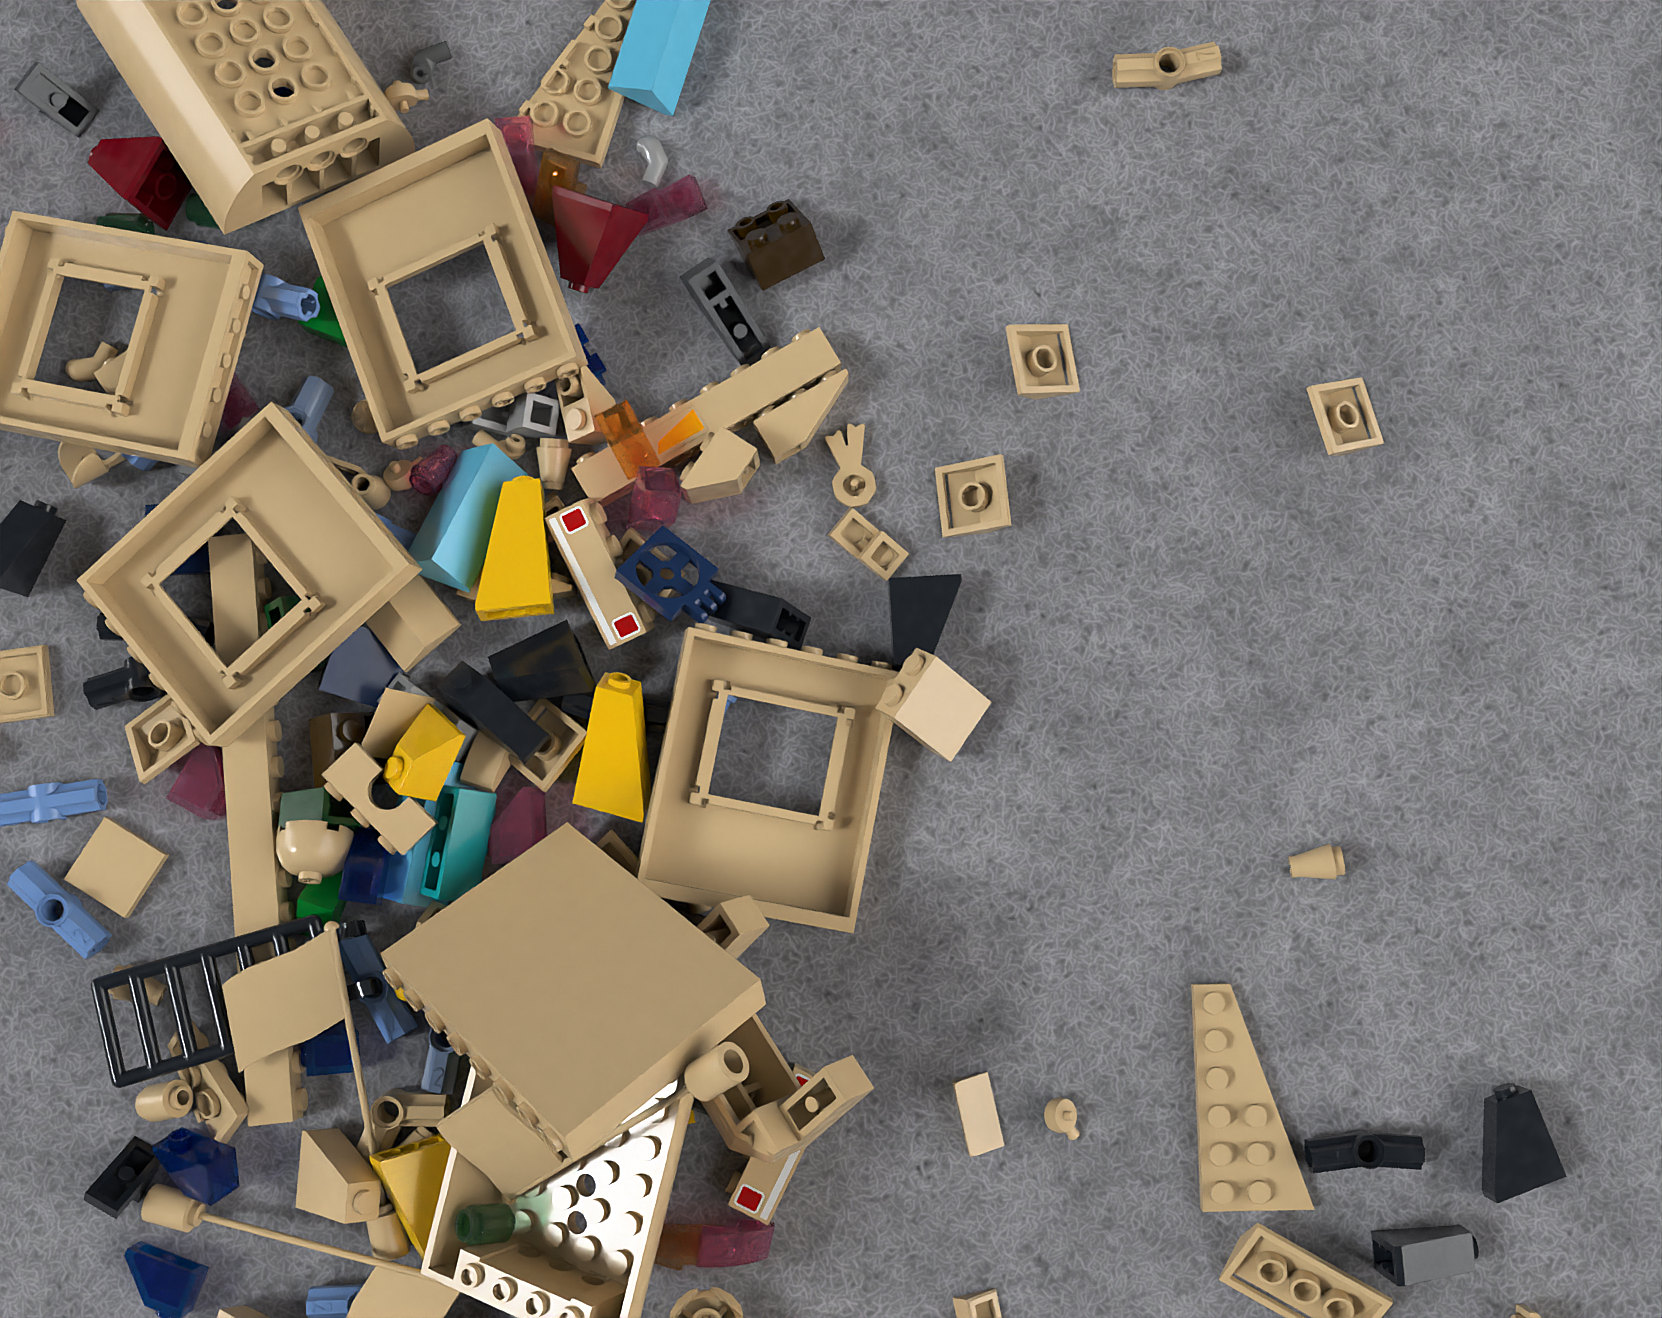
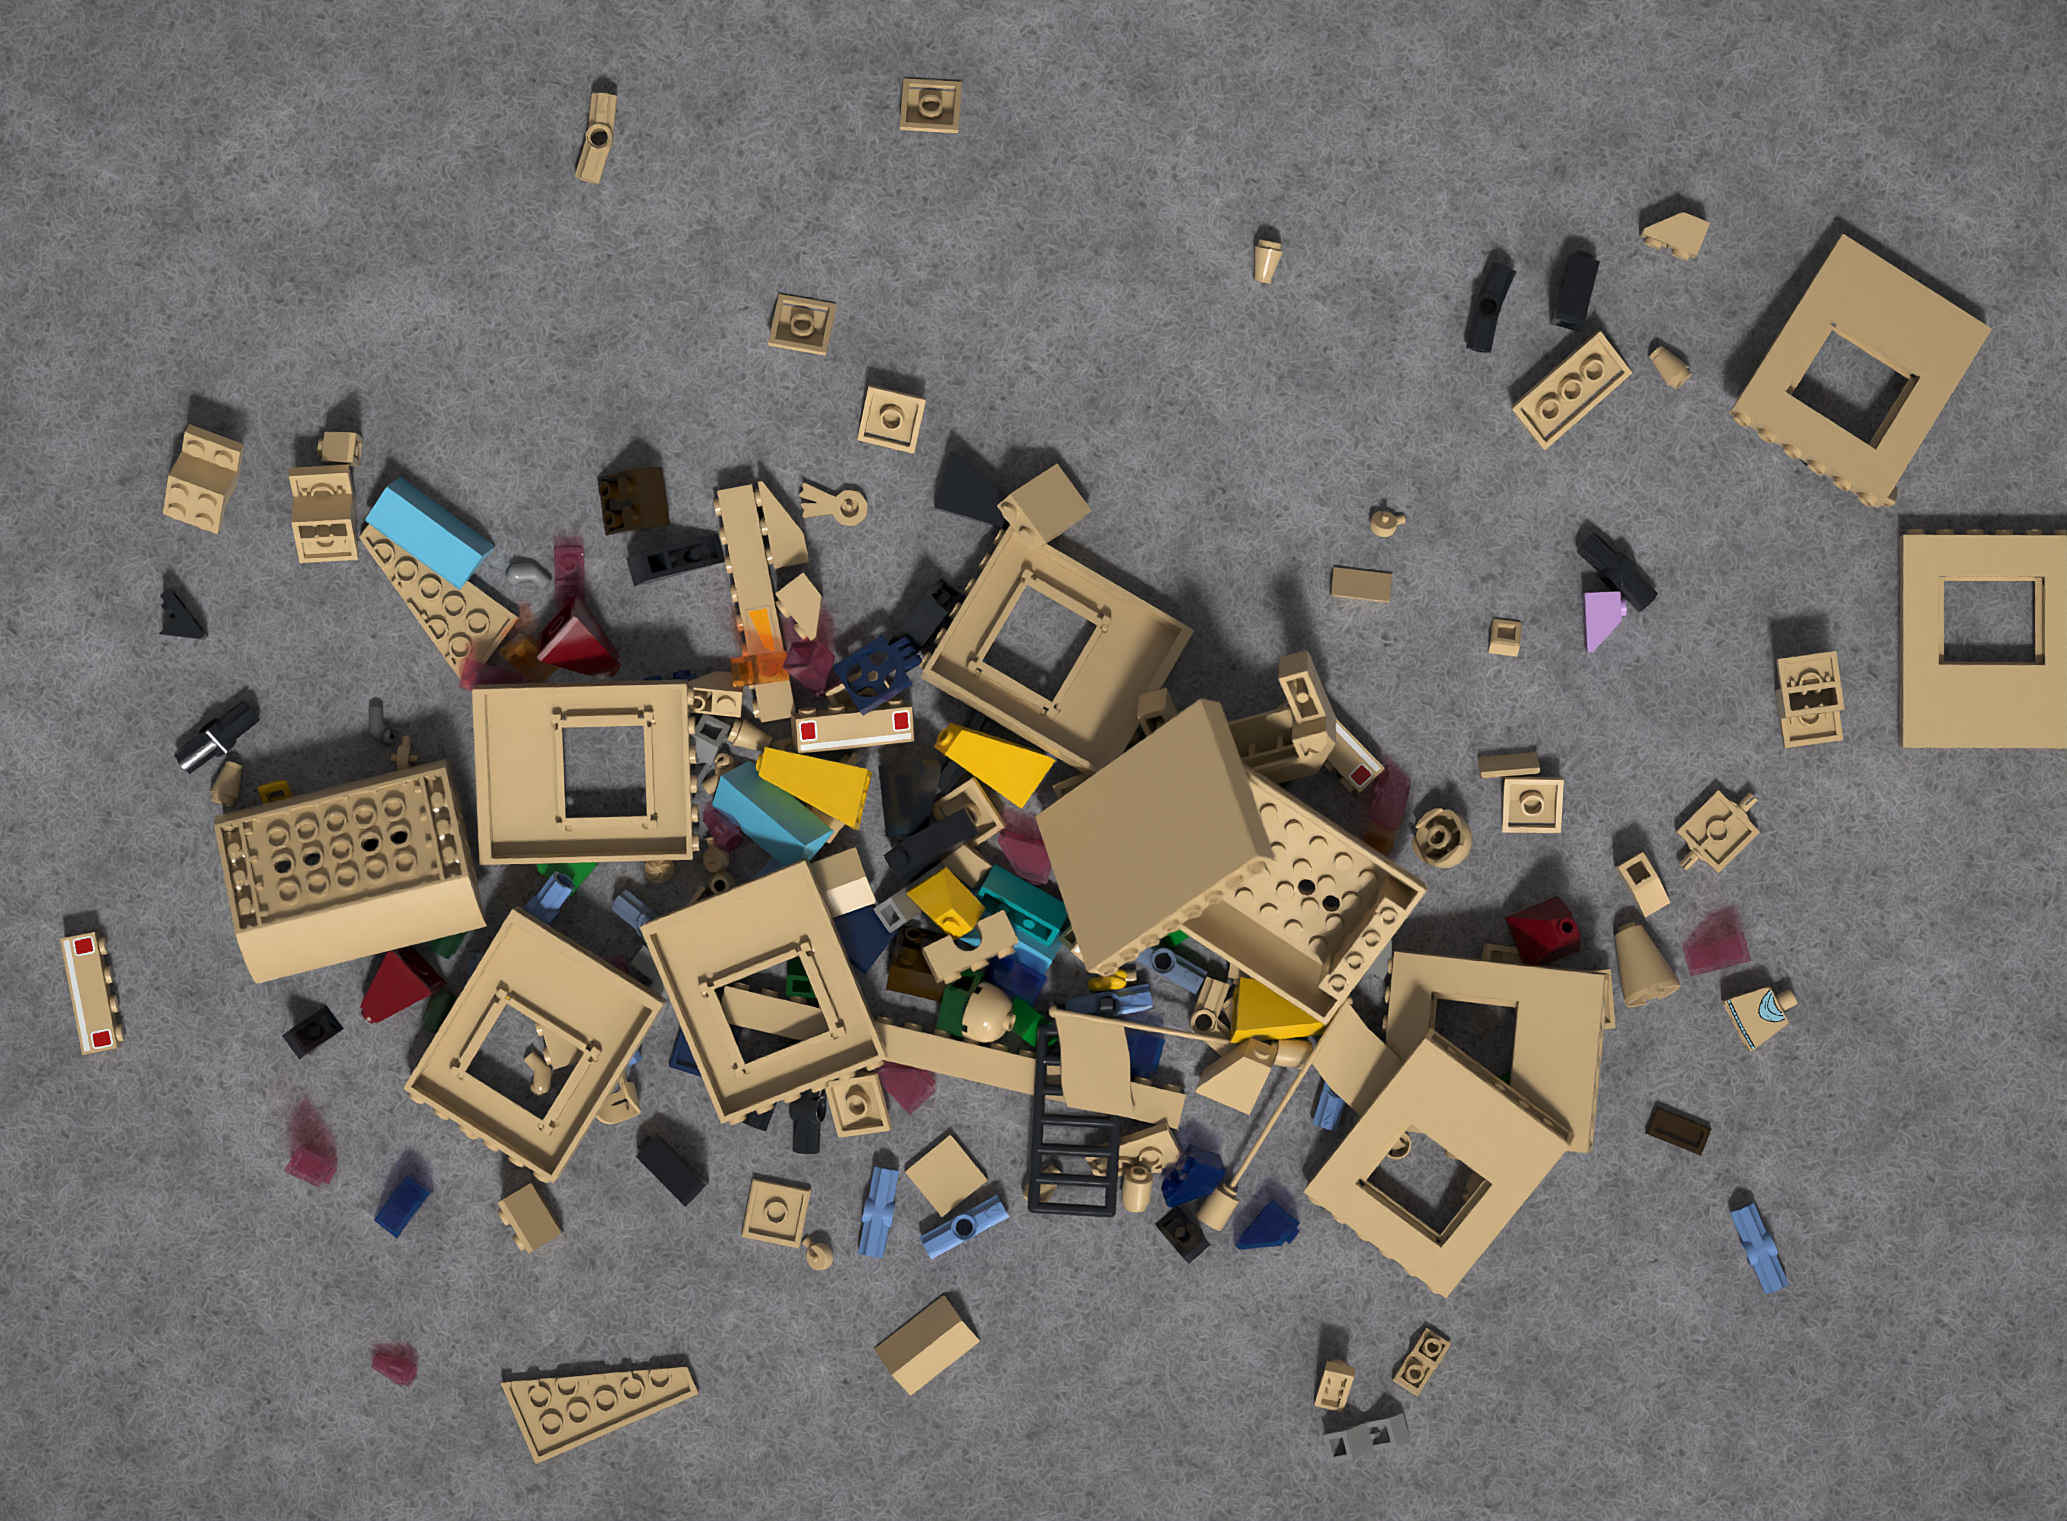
camera: 70 degrees left, 5 degrees up
(391, 721) = (914, 921): tan sticker -> none
(485, 1224) = (1307, 968): clear green brick -> none
(517, 1155) = (1264, 923): tan flag -> none
(868, 544) = (899, 513): tan slope -> none
(1239, 1132) = (1444, 394): tan wing -> none
(1516, 1145) = (1523, 192): black slope -> none

